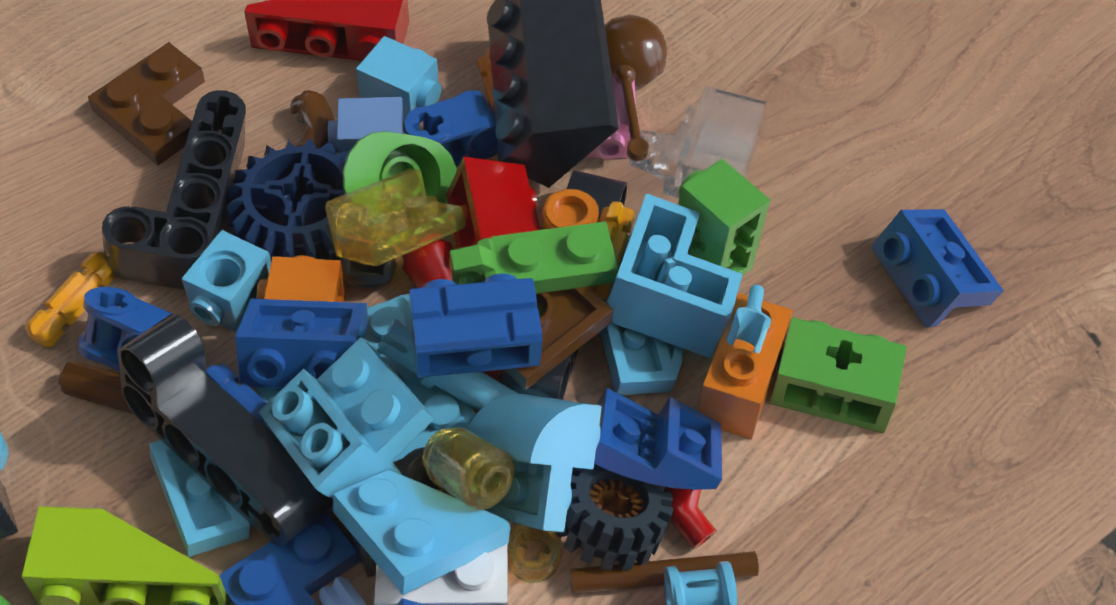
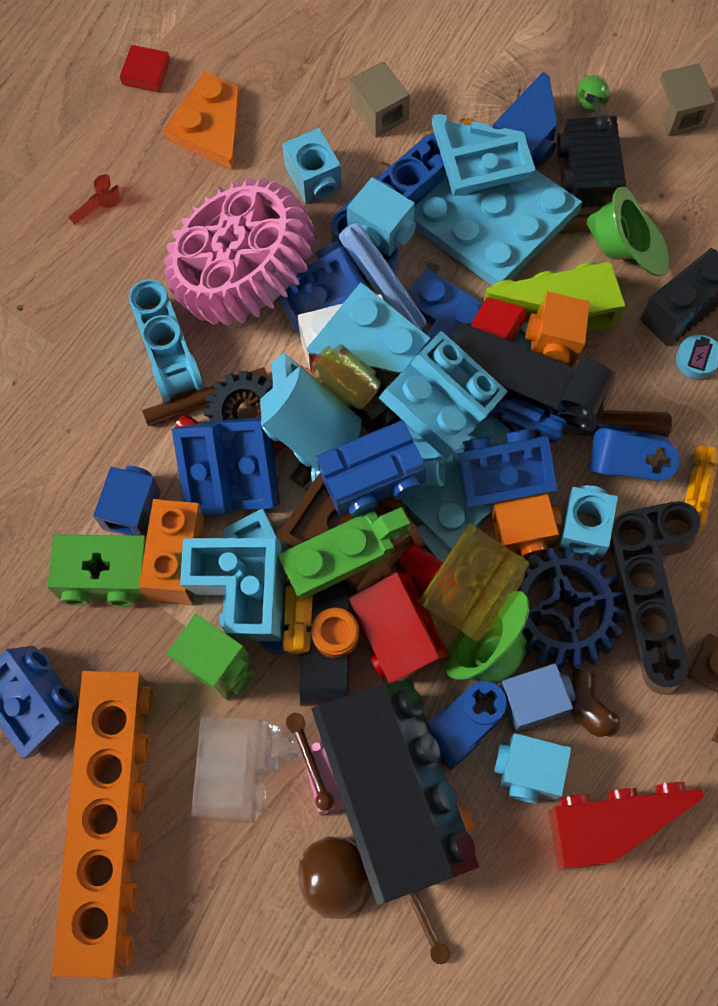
camera: 170 degrees right, 15 degrees up
(149, 483) = (559, 328): none -> orange brick
(225, 537) = (500, 318): none -> red tile
(750, 322) = (167, 549): medium azure hand -> none
(794, 442) = (127, 501): none -> blue brick
(860, 144) = (74, 948): none -> orange brick

